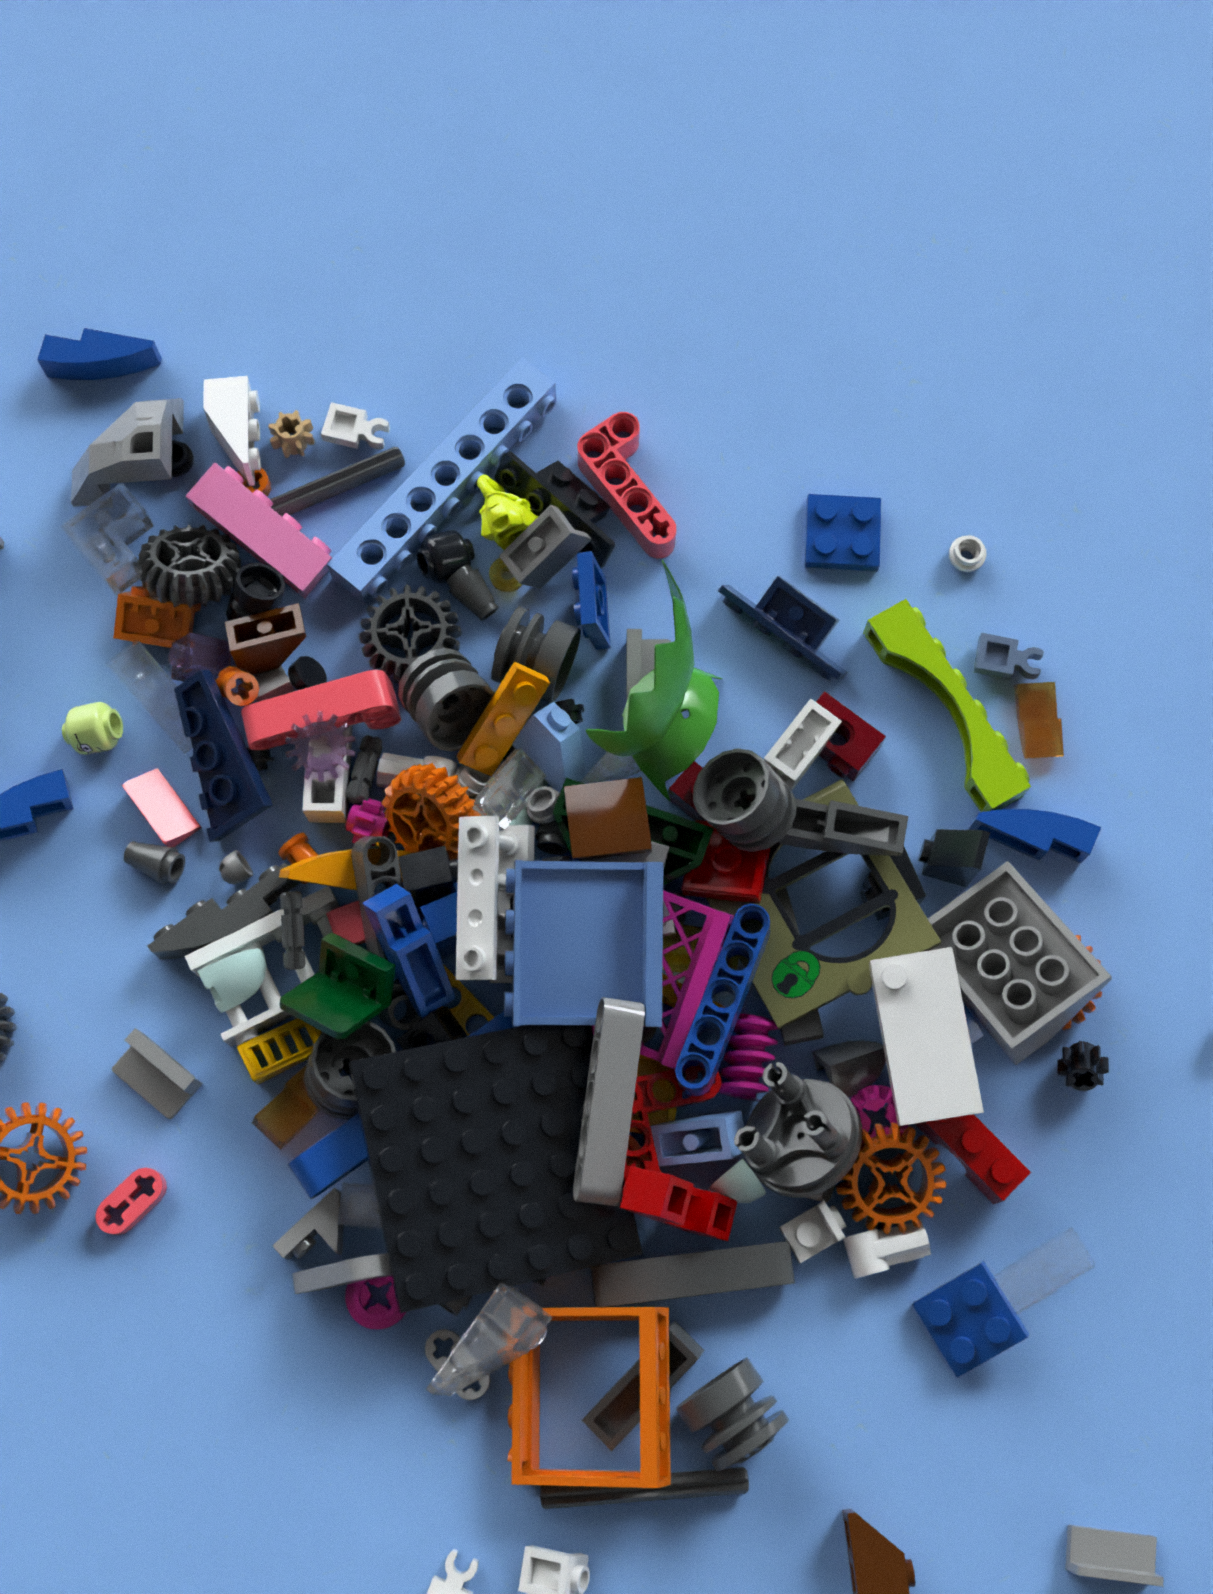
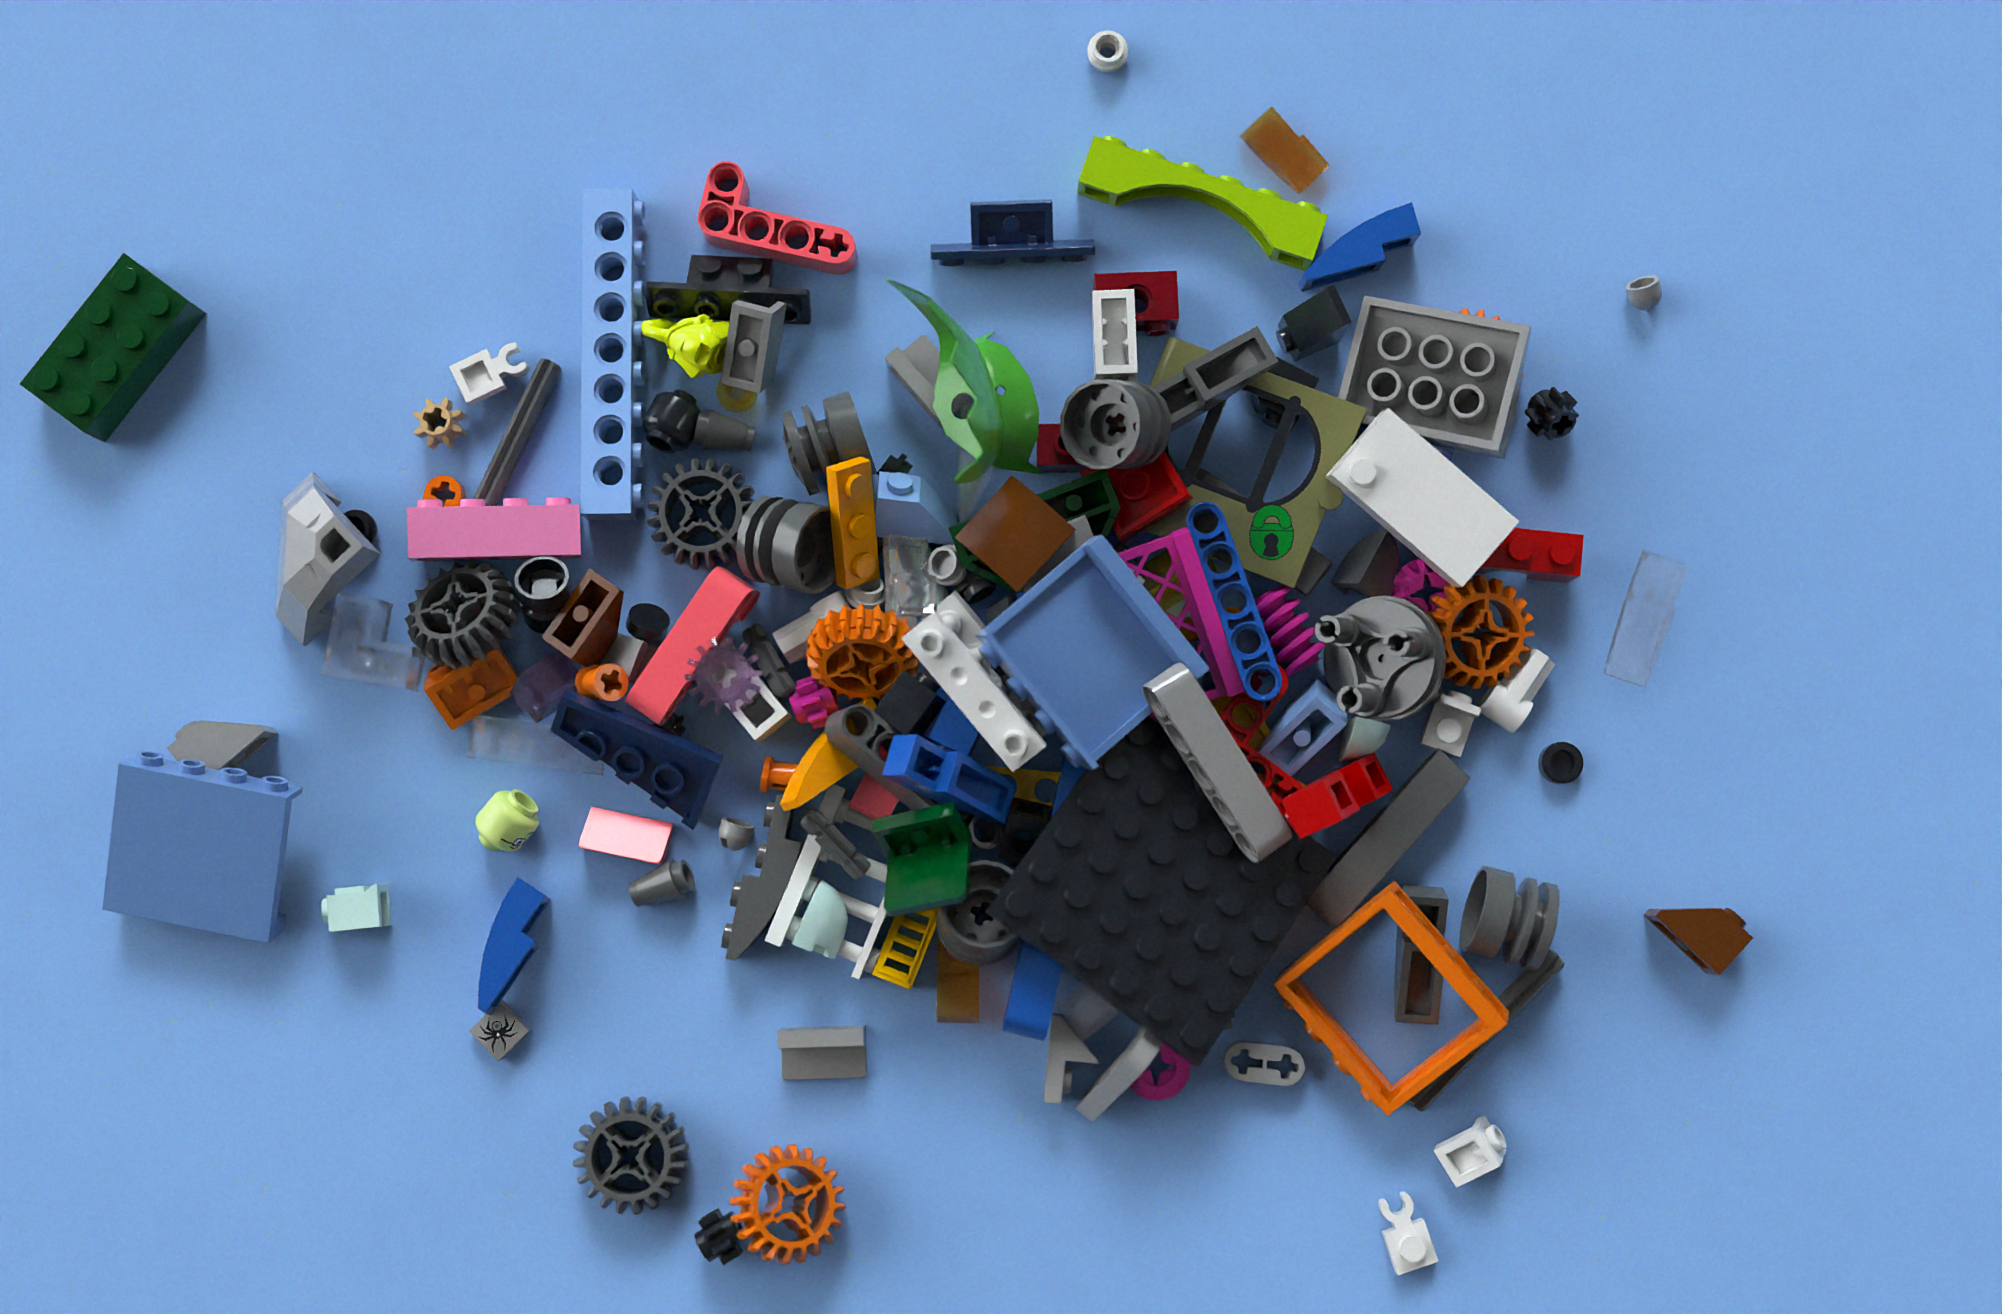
camera: 40 degrees left, 10 degrees up
(96, 356) = (200, 497): blue slope -> none
(124, 1194) = (885, 1164): coral beam -> none
(130, 221) = (113, 348): none -> dark green brick
(230, 415) = (371, 453): white slope -> none
(499, 1334) = (1284, 1009): clear slope -> none
(593, 604) = (843, 366): blue plate -> none
(842, 532) = (987, 118): blue plate -> none
(874, 1334) = (1560, 762): none -> black tile
(970, 1319) = (1625, 688): blue plate -> none
(999, 657) = (1210, 121): sand blue plate -> none
(1112, 1555) = (1870, 775): light grey panel -> none

